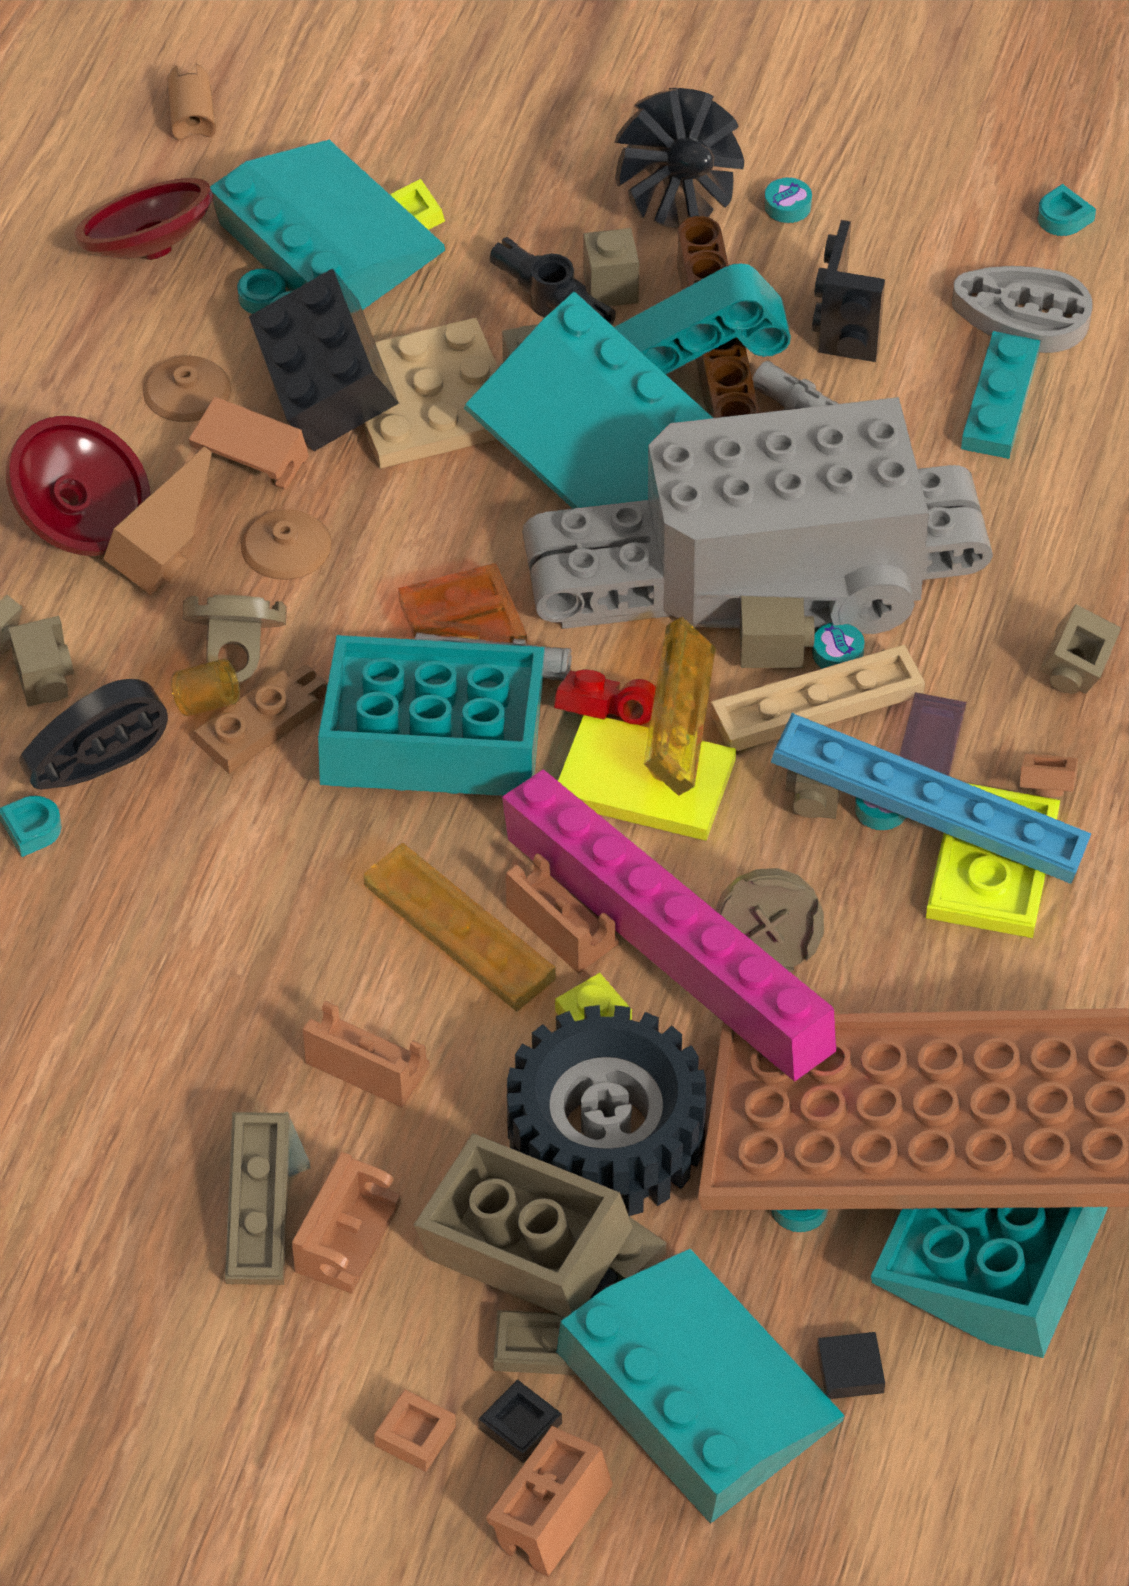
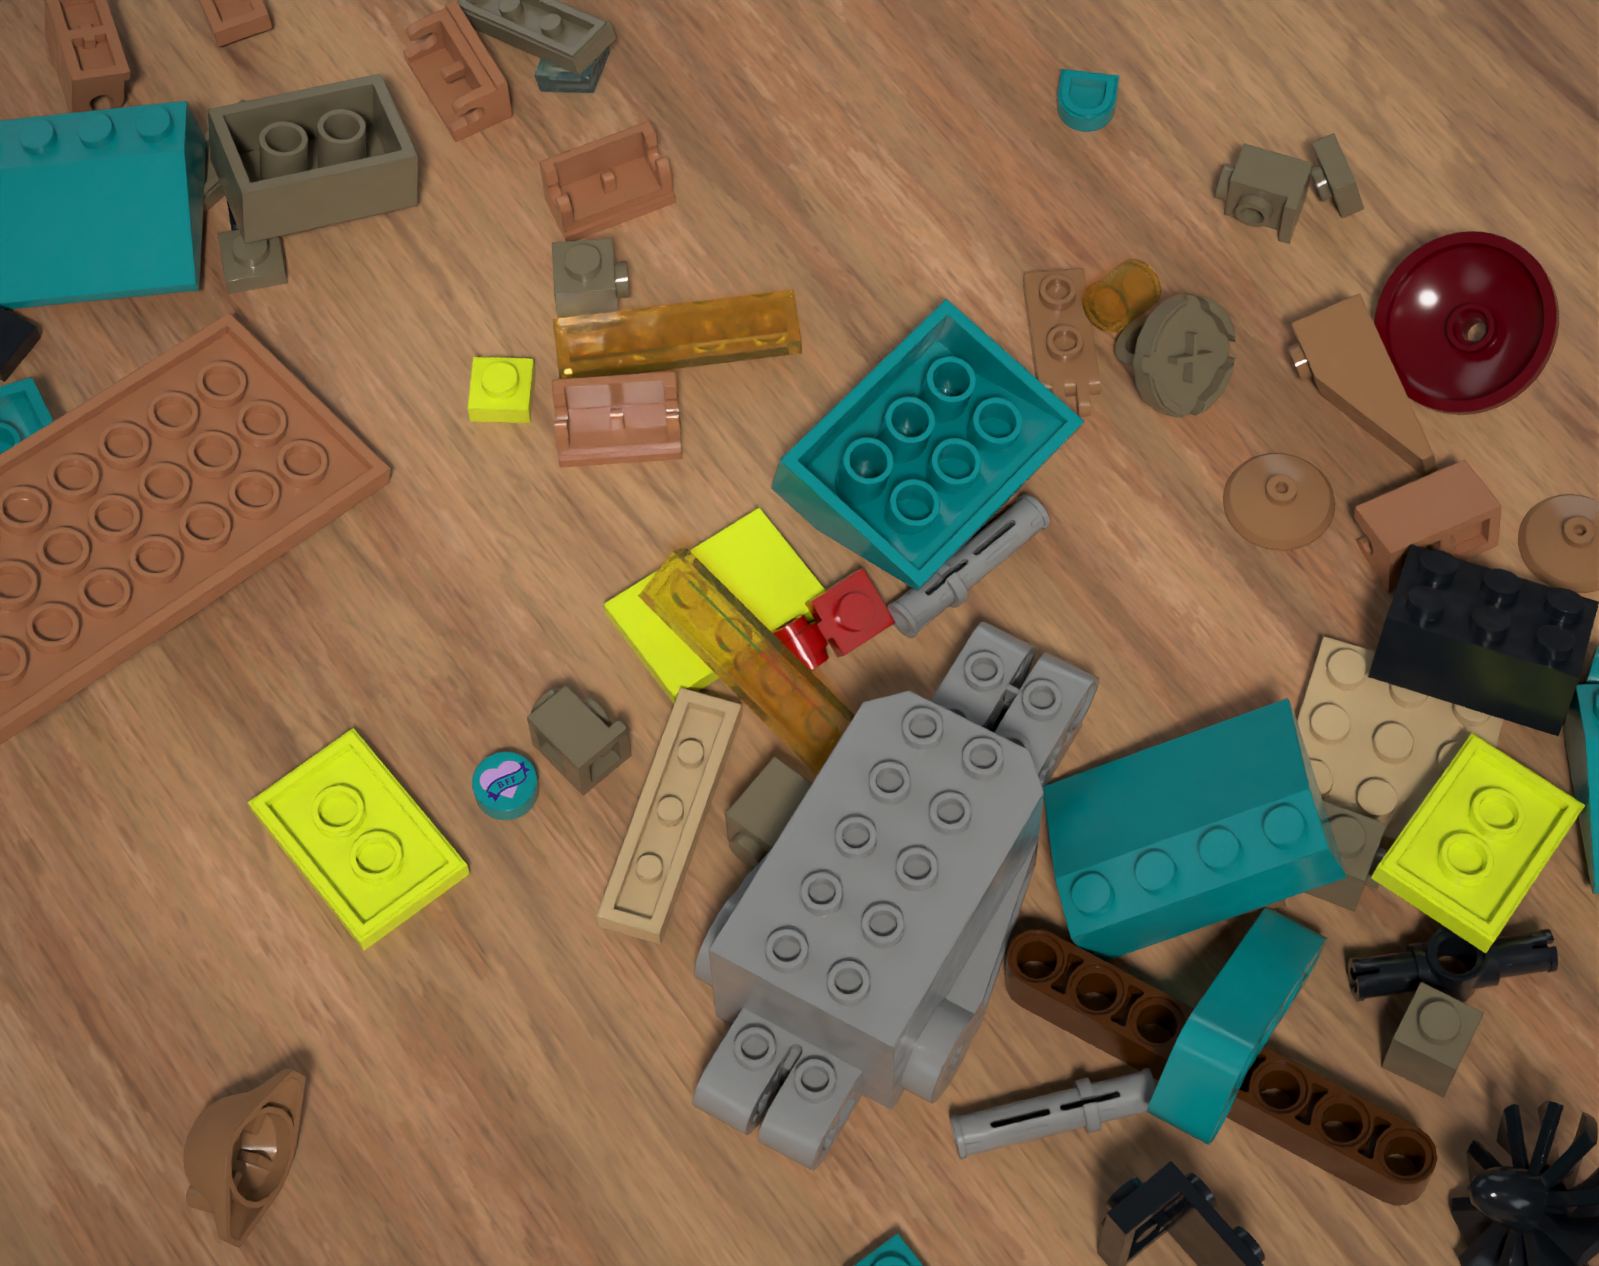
camera: 130 degrees right, 10 degrees up
(96, 735) = (1122, 167): black piece -> none
(463, 606) = (1048, 581): clear orange wing -> none
(469, 294) = (1478, 842): none -> neon yellow tile
(469, 997) = (587, 277): none -> dark tan brick
(519, 1420) = (182, 82): black tile -> none
(603, 1069) = (352, 270): black wheel -> none
(672, 926) = (504, 459): dark pink brick -> none
(776, 913) = (443, 560): dark tan tile -> none
(837, 644) = (715, 883): teal tile -> none
(931, 798) = (443, 793): dark azure tile -> none
(933, 732) = (535, 885): tile -> none
(1048, 774) = (394, 950): nougat plate -> none
(1079, 650) = (508, 1101): dark tan brick -> none

